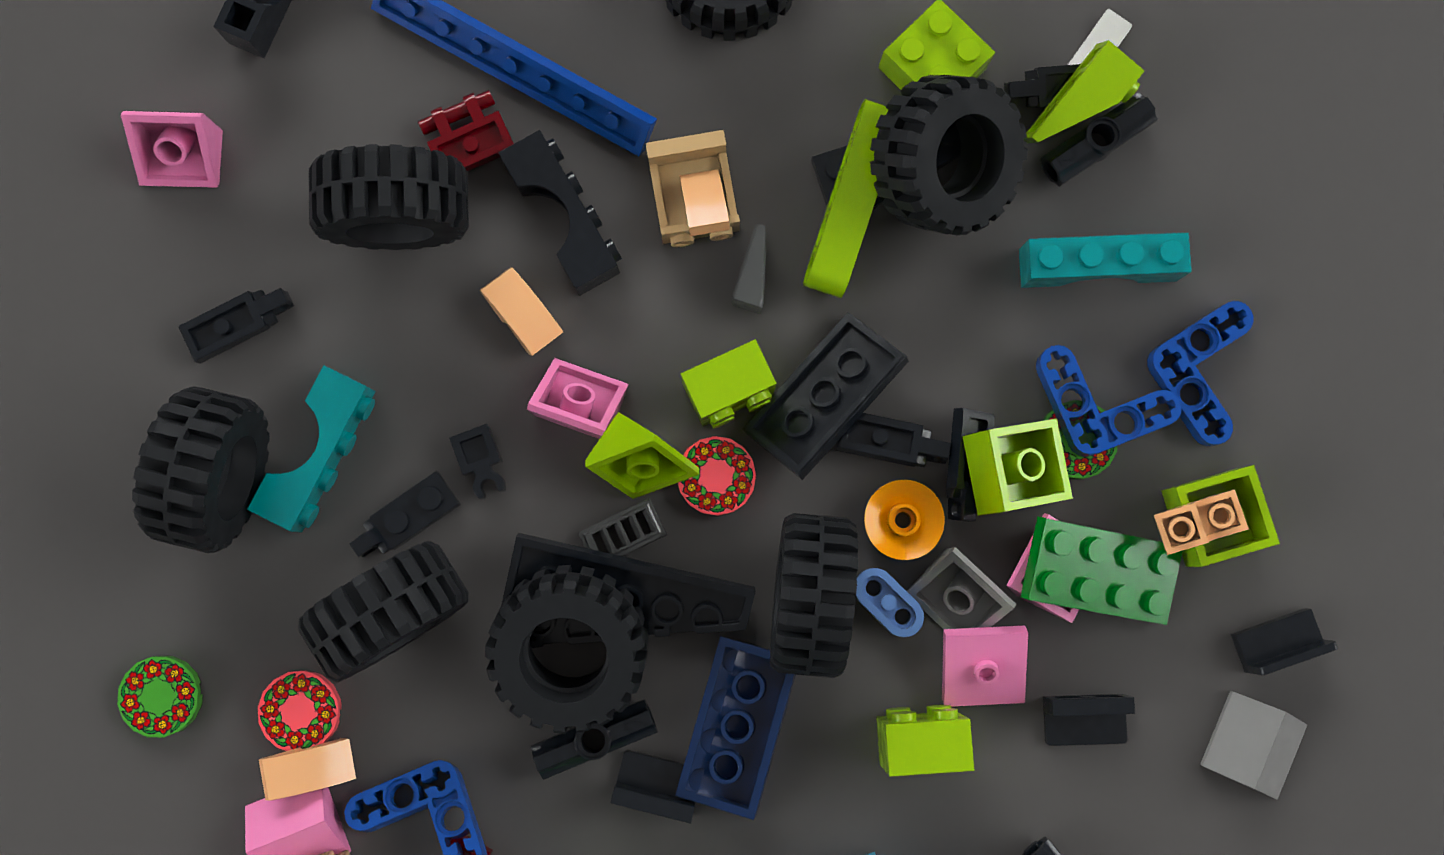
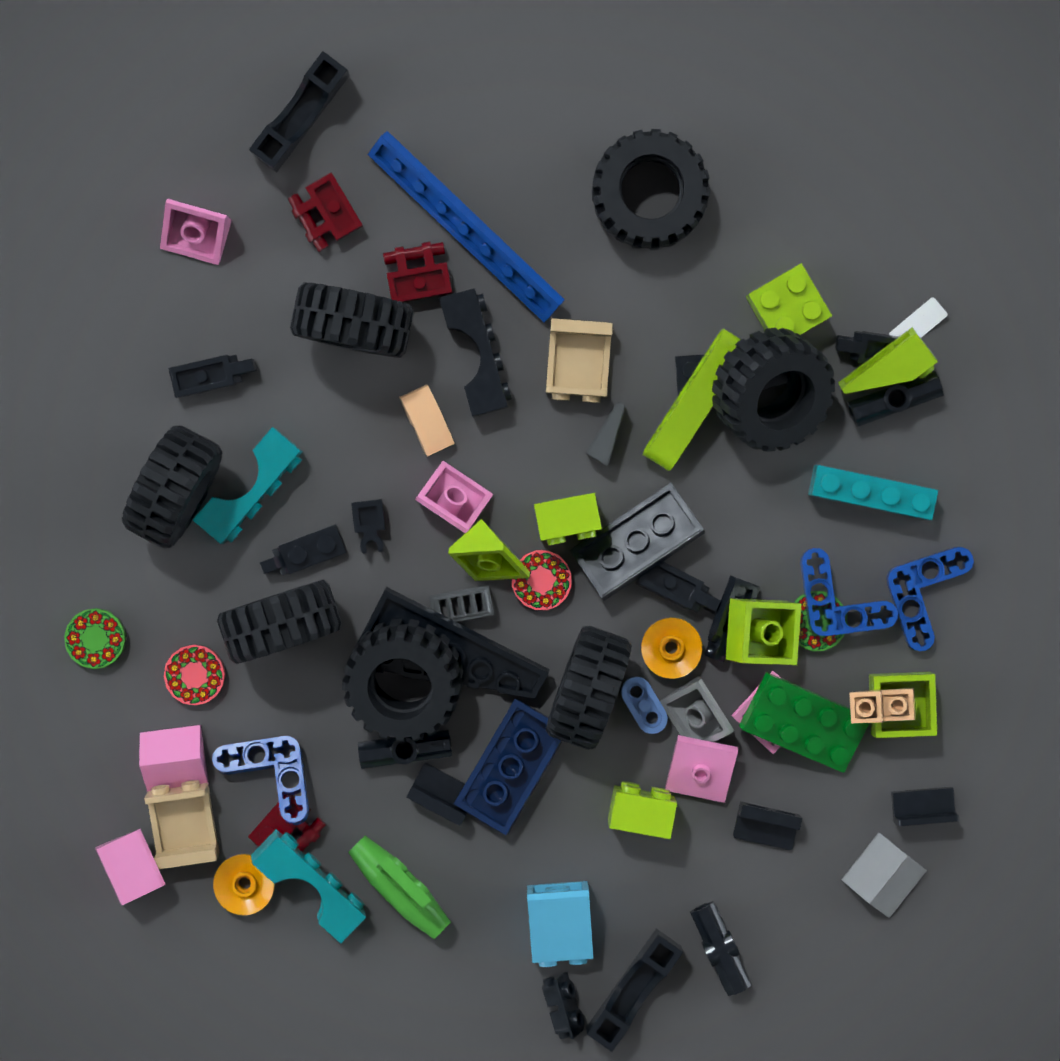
camera: 15 degrees right, 5 degrees up
(307, 769) = (193, 718): light nougat slope -> none
(343, 80) = (333, 206): none -> dark red plate
(704, 202) = (584, 374): light nougat slope -> none

